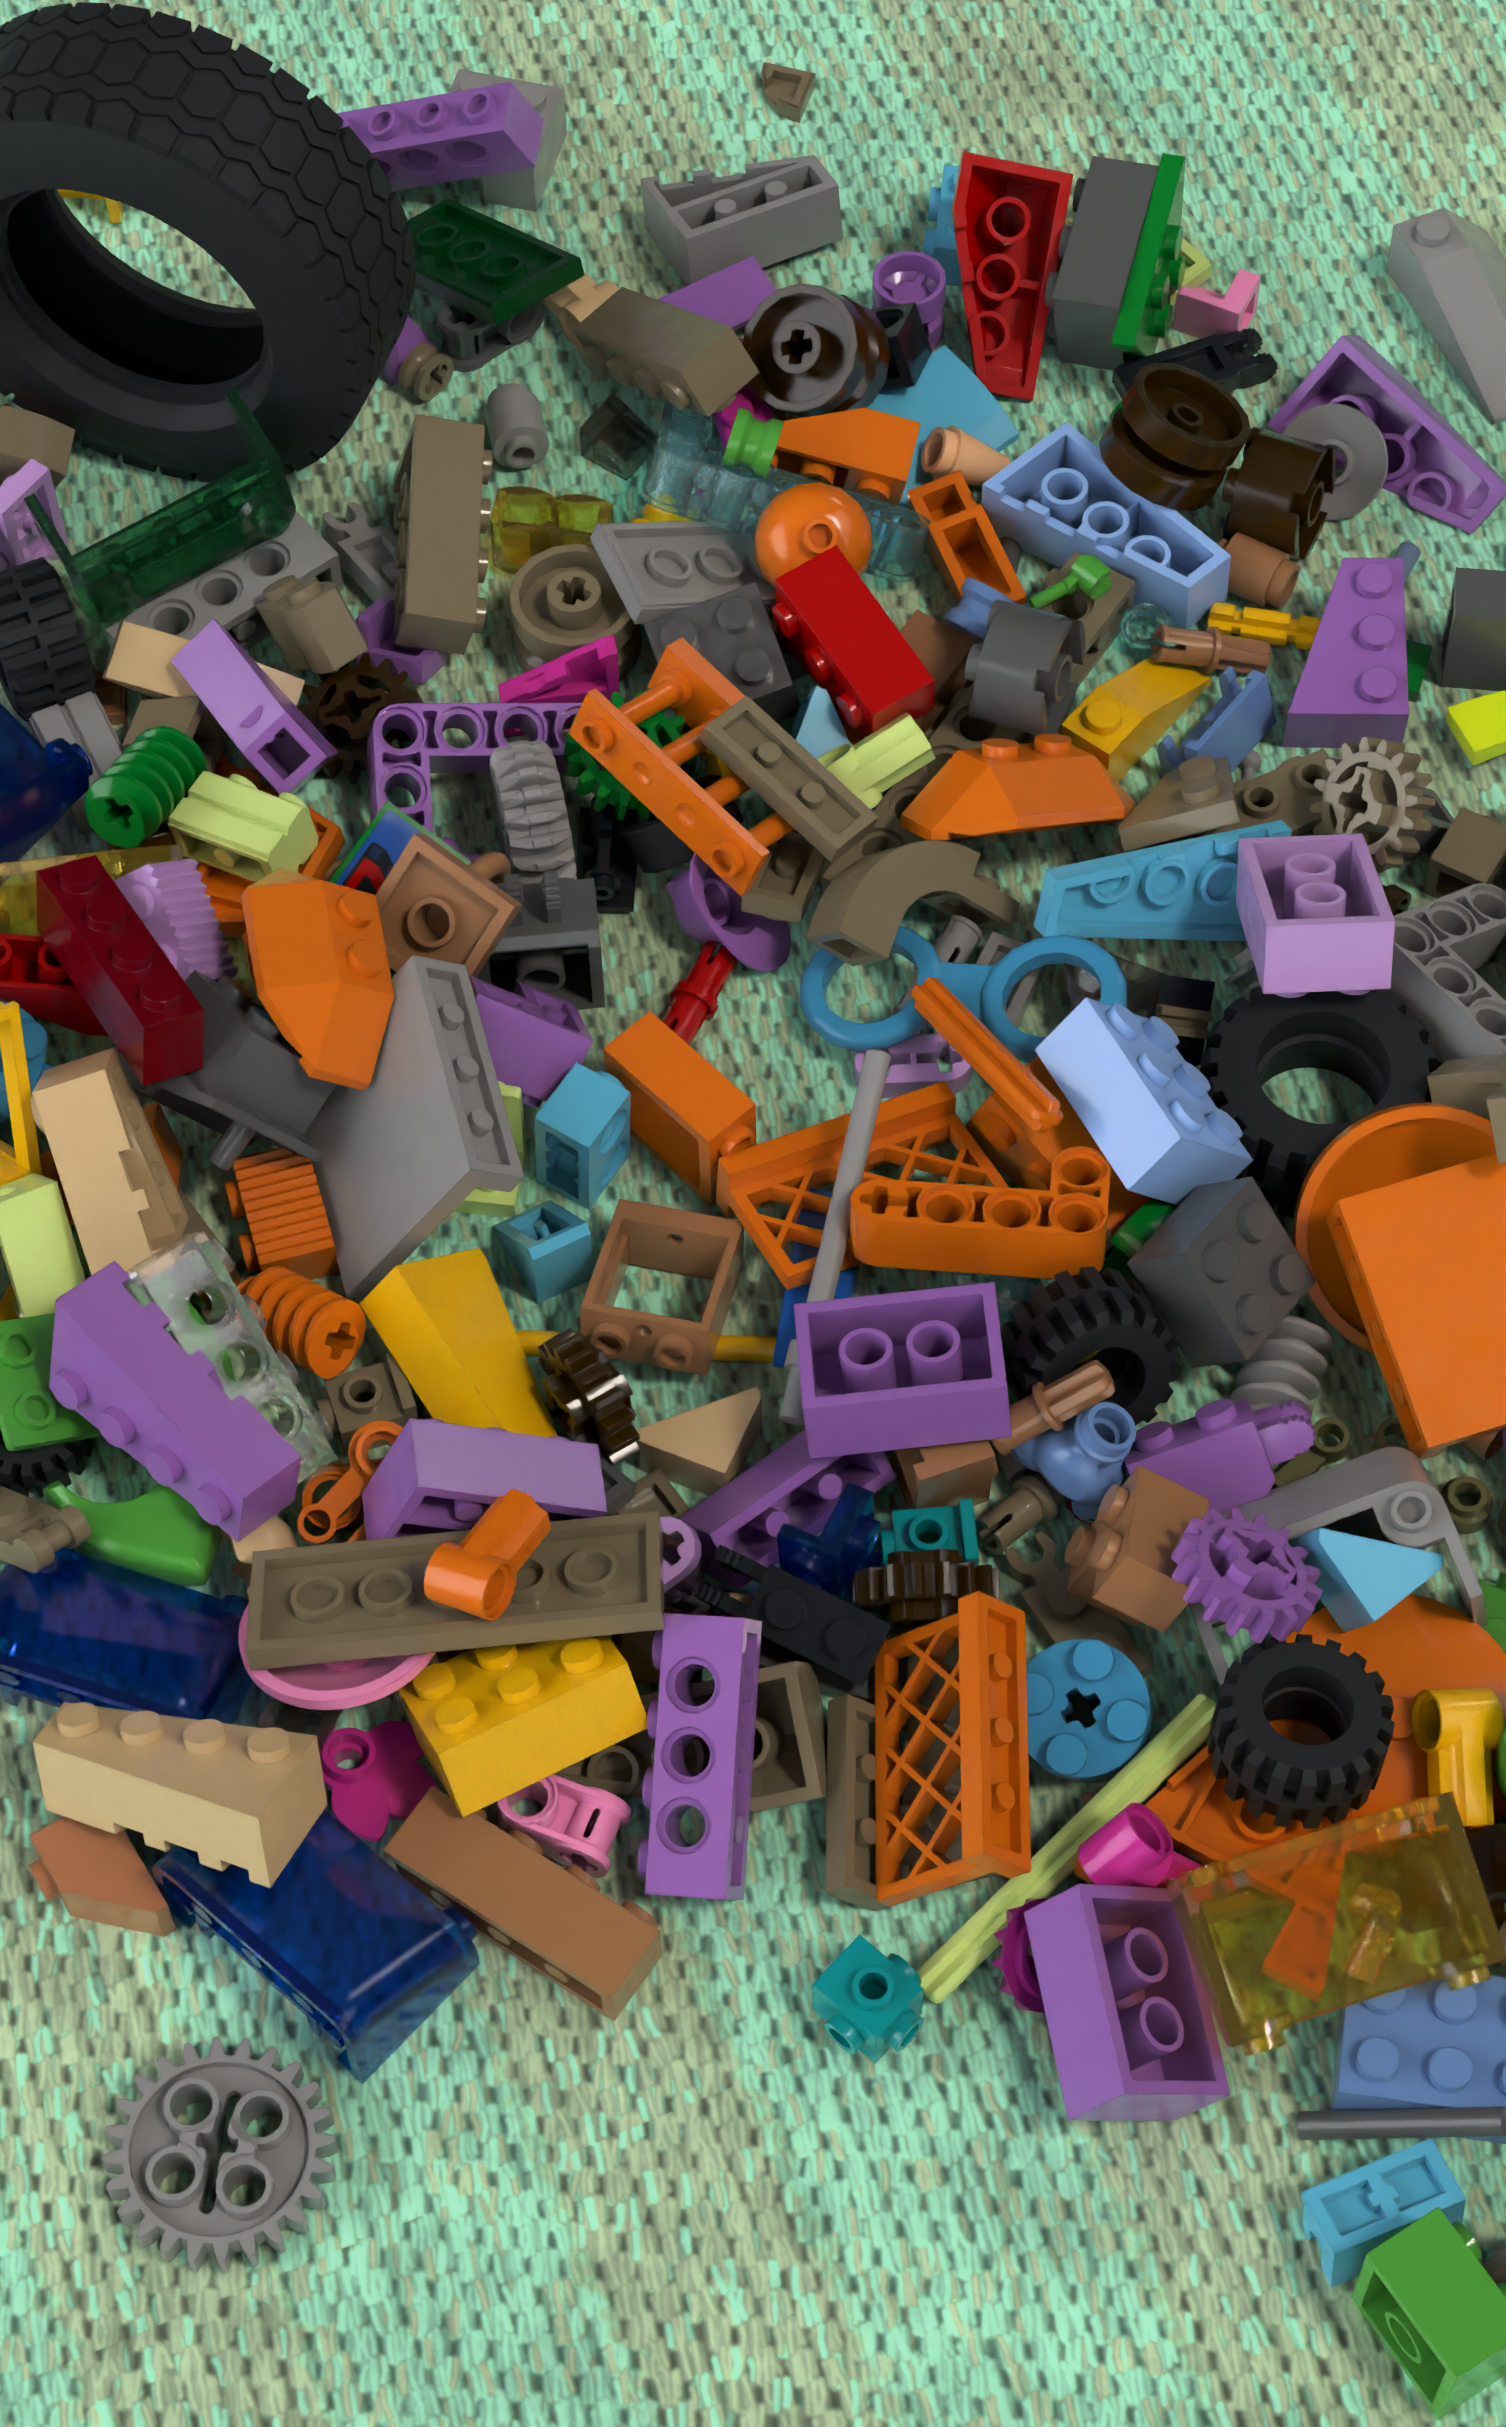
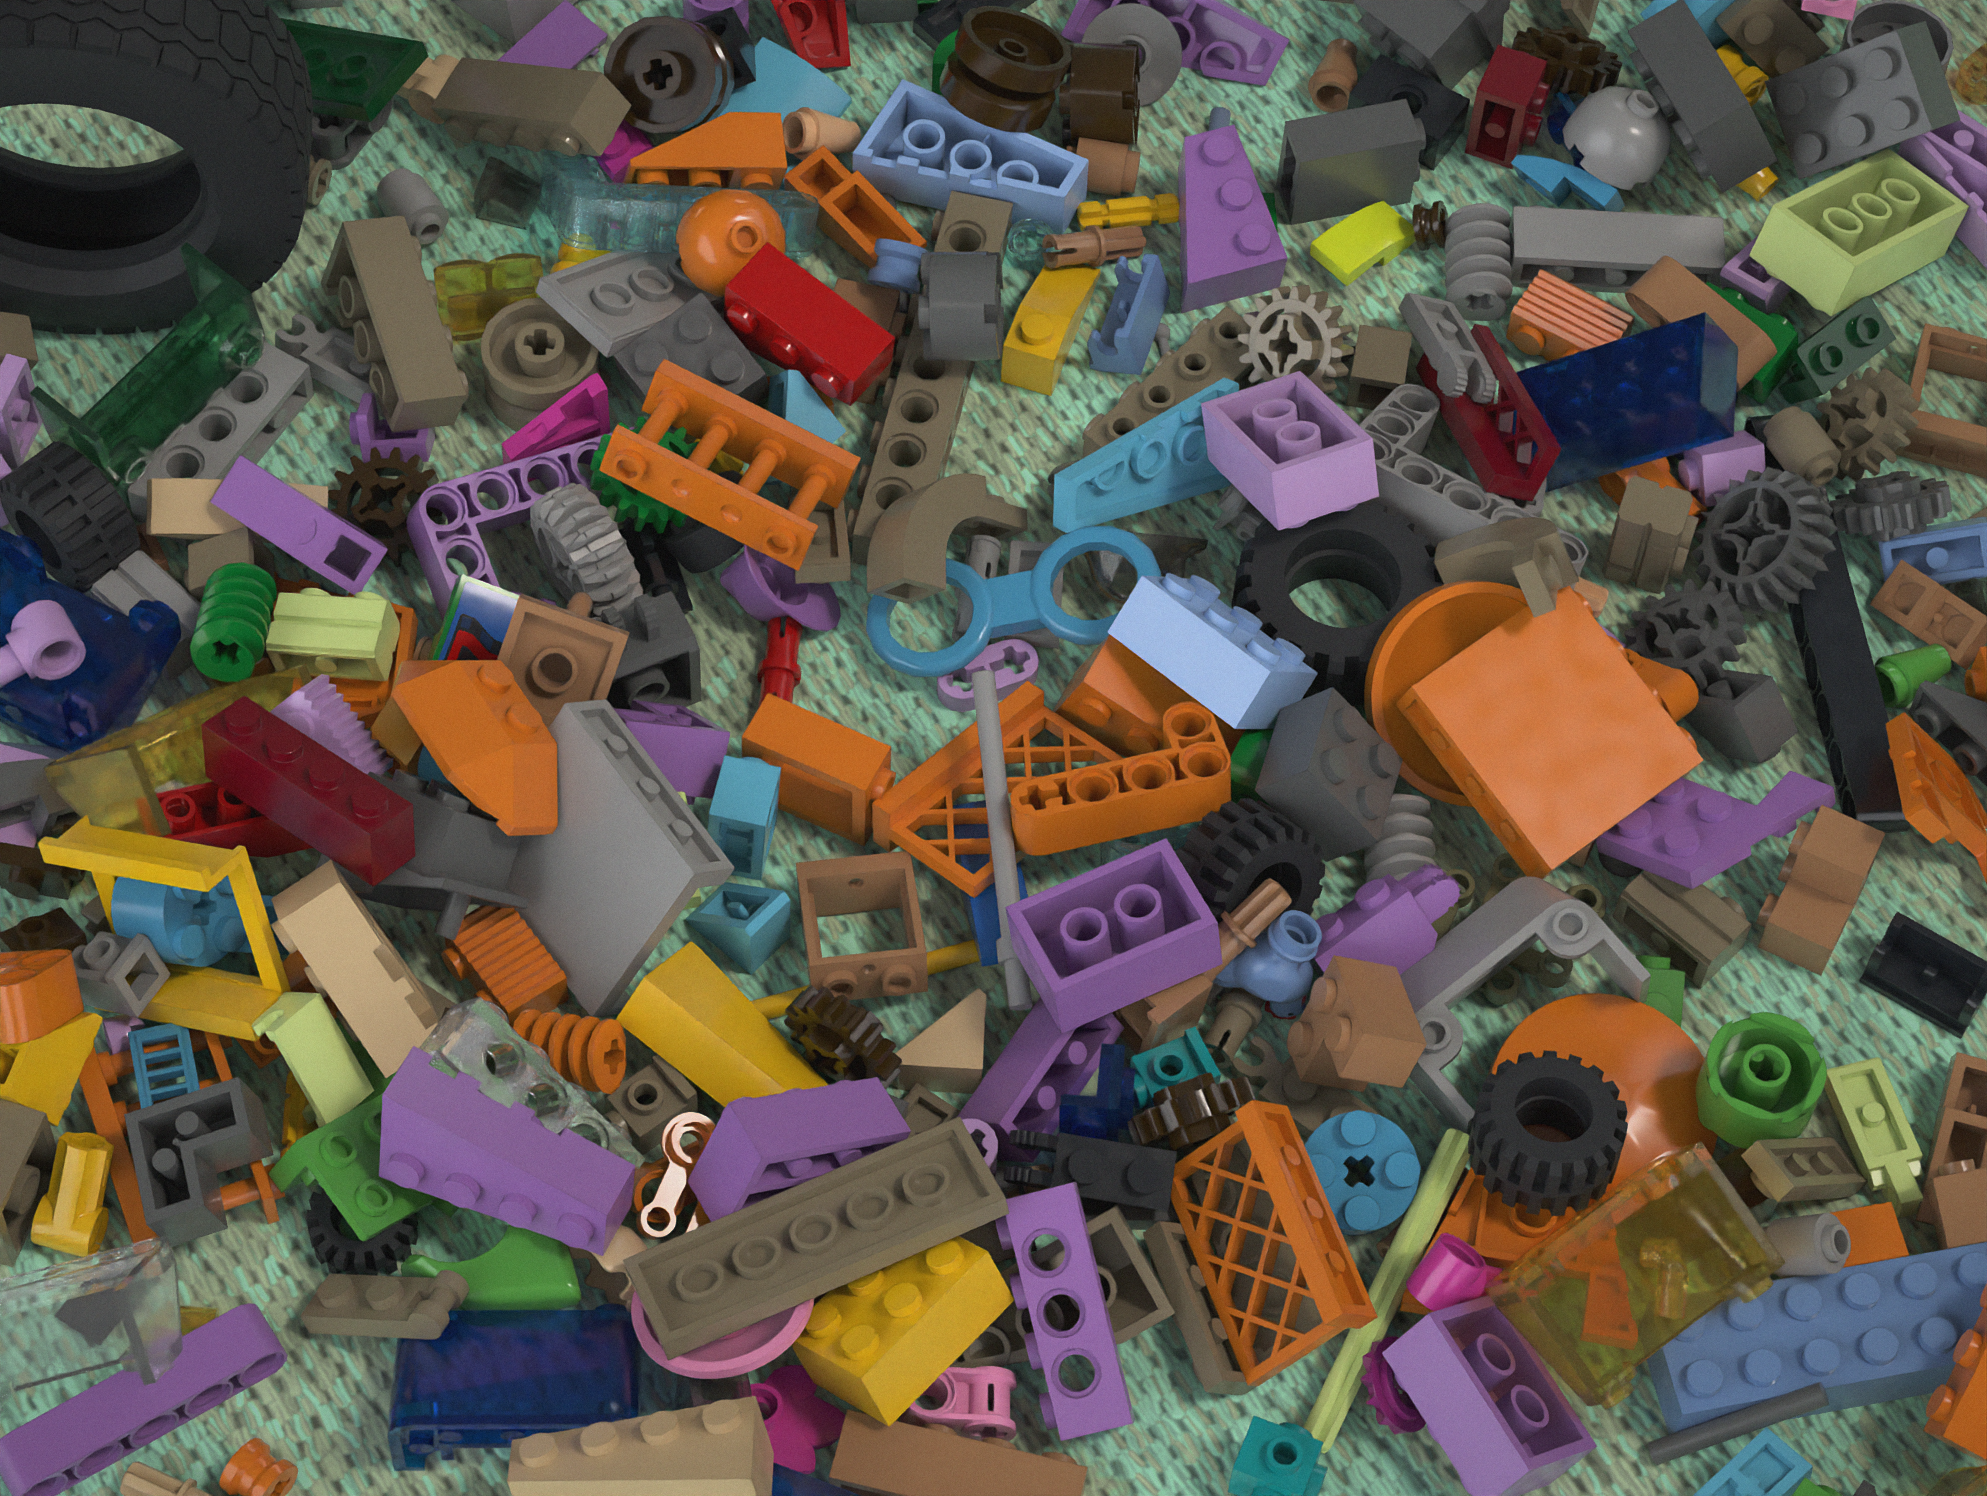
camera: 25 degrees left, 0 degrees up
(311, 624) = (316, 435): dark tan brick -> none
(483, 1568) = (841, 1209): orange piece -> none
(752, 442) = (651, 169): bright green wheel -> none
(789, 778) = (805, 457): dark tan plate -> none
(880, 759) = (865, 419): yellowish green piece -> none
(987, 1055) = (1067, 648): orange axle -> none
(1016, 790) = (992, 415): orange wedge -> none
(1085, 574) = (974, 209): bright green hand -> none
(1182, 804) = (1137, 385): dark tan wing -> none
(1186, 1009) = (1199, 556): black piece -> none
(1246, 1575) = (1462, 1018): medium lavender gear -> none
(1364, 1575) = (1544, 992): medium azure slope -> none
(1458, 1735) = (1665, 1096): yellow piece -> none

